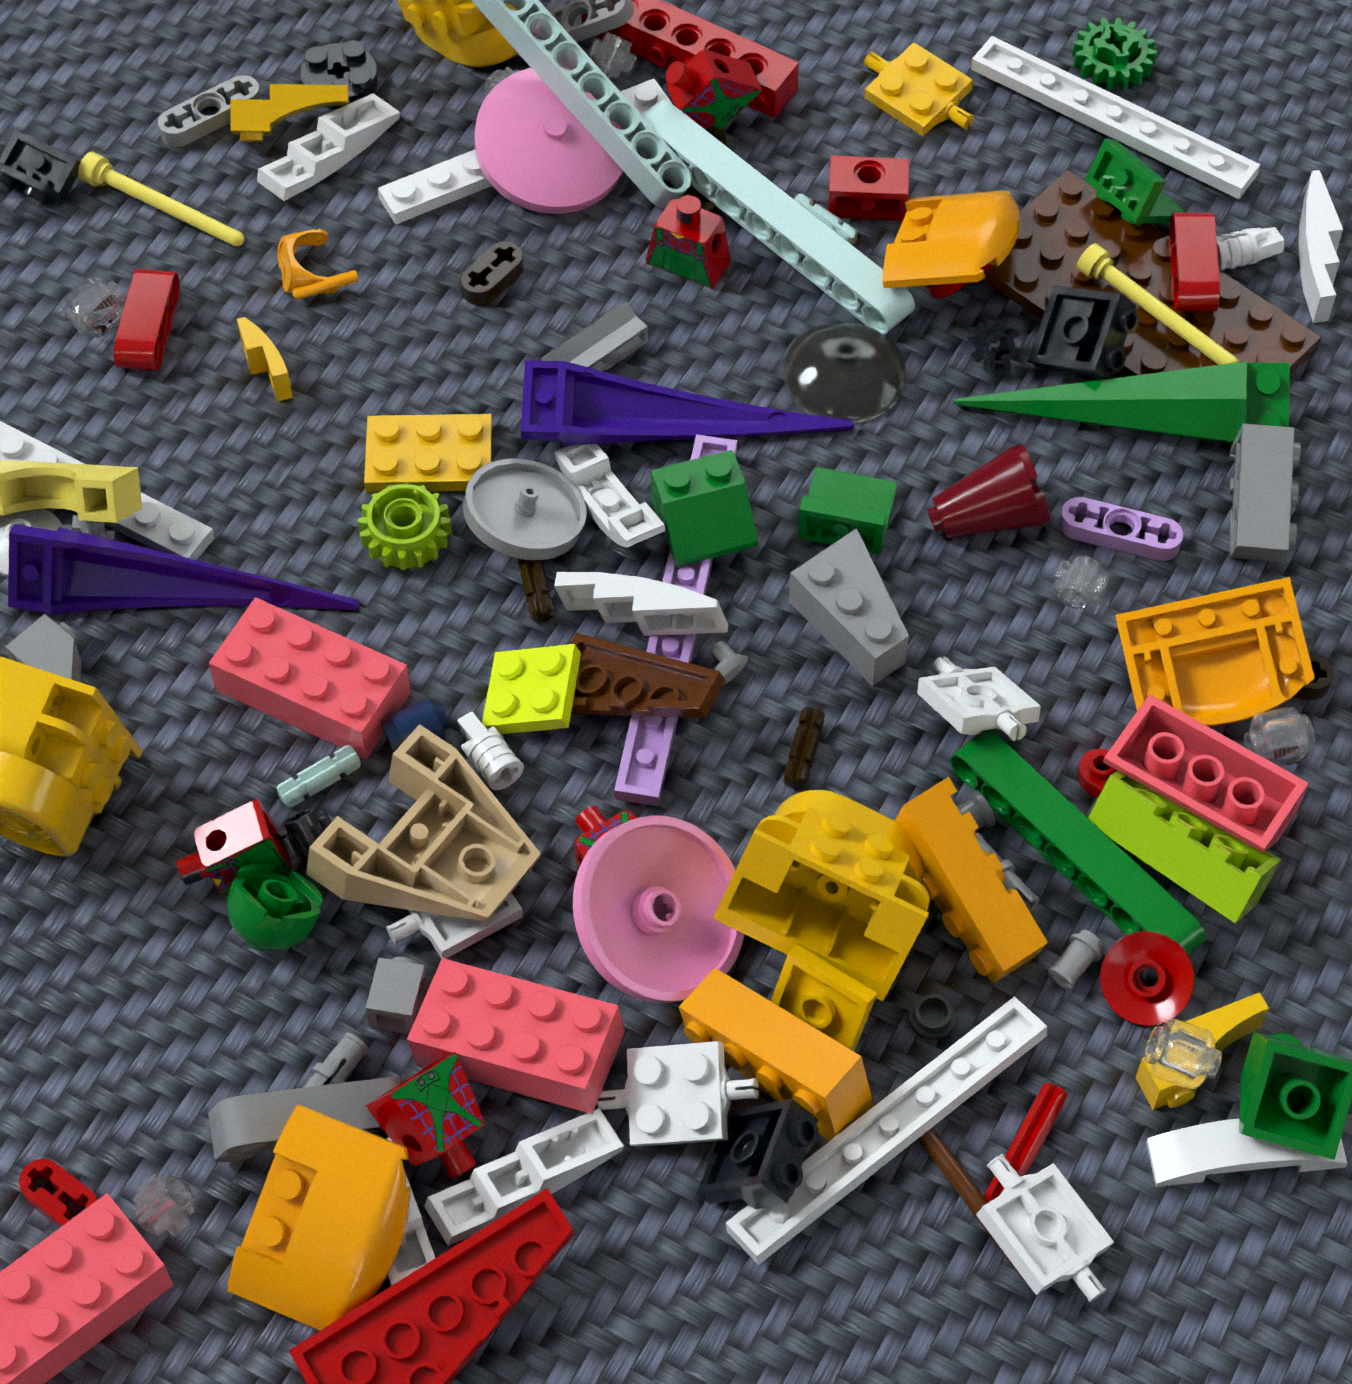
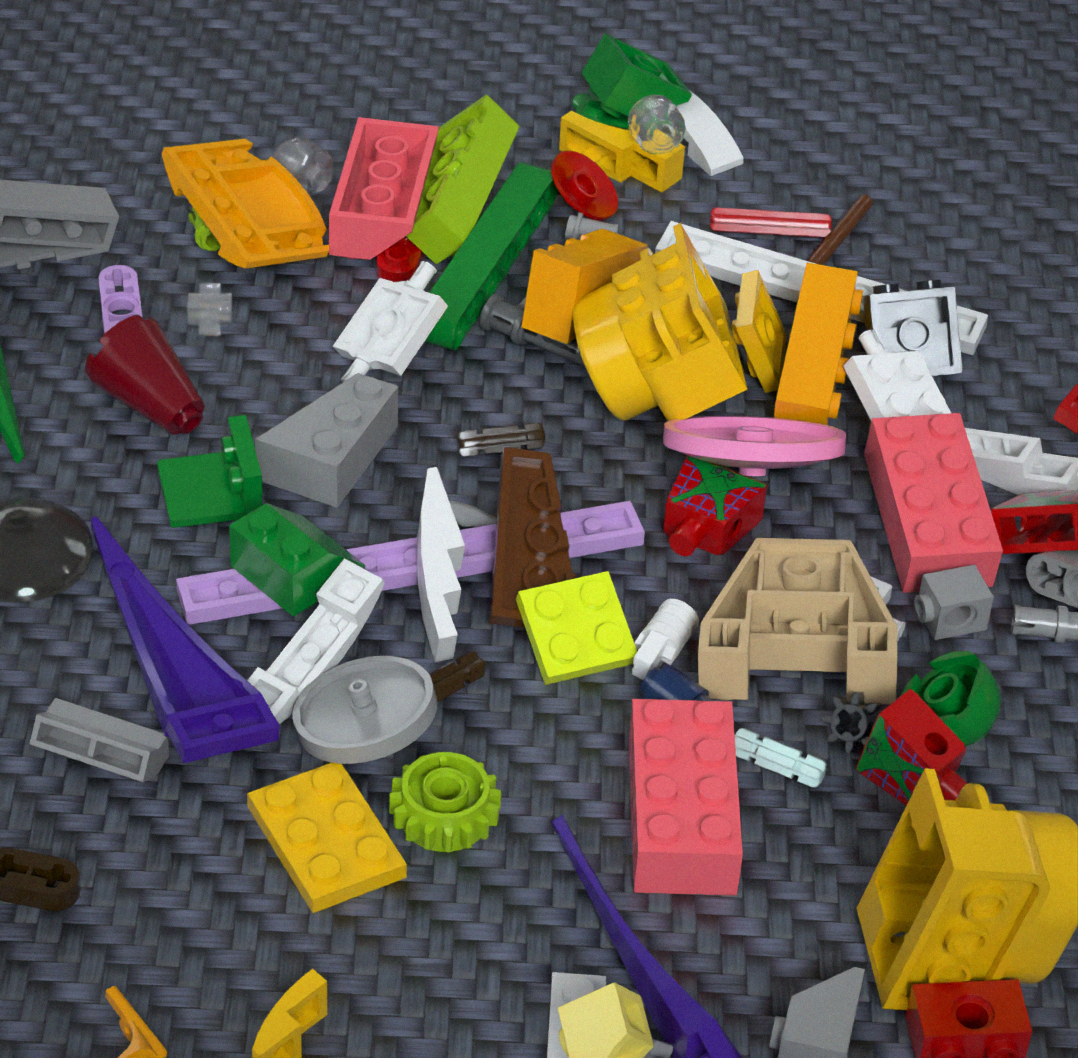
camera: 120 degrees left, 15 degrees down
(1045, 1228) = (835, 186): white plate -> none

